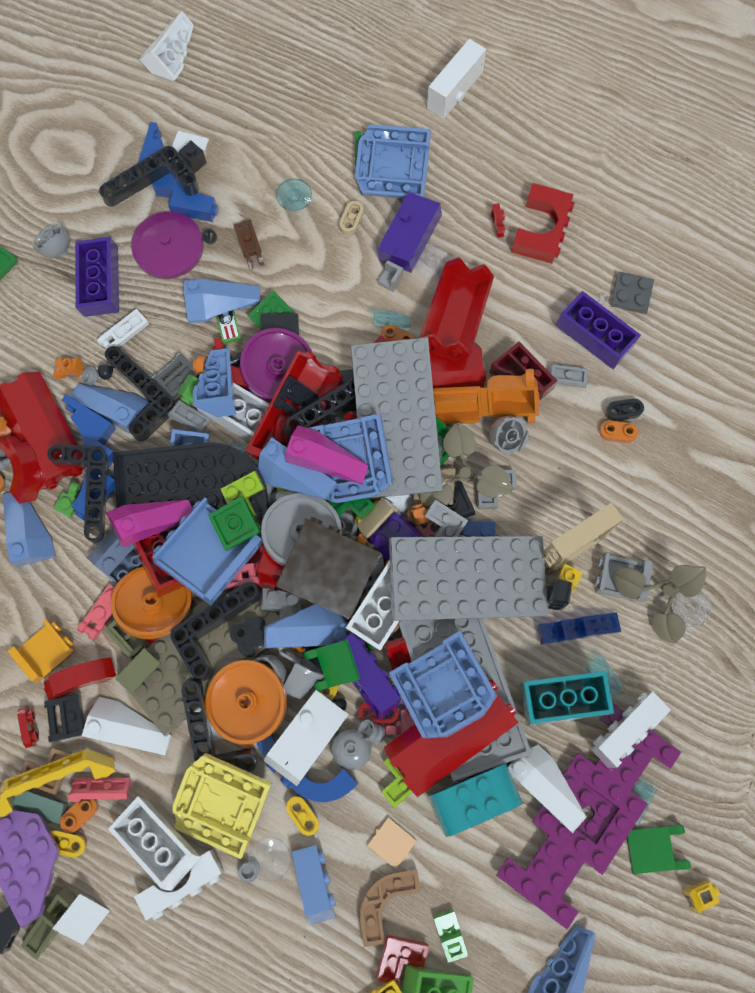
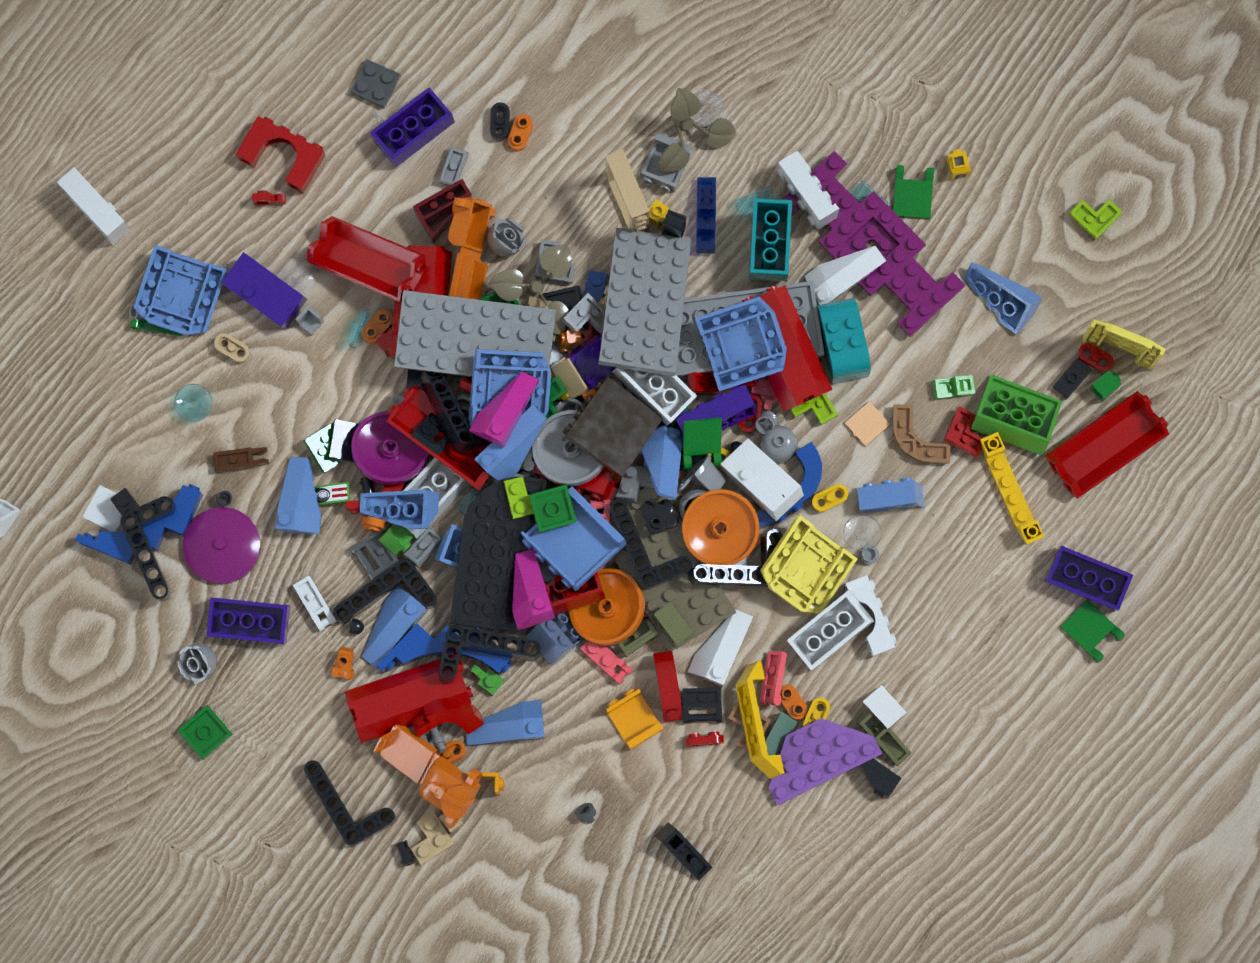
camera: 80 degrees left, 5 degrees up
(90, 376) = (358, 642): light grey plate -> none

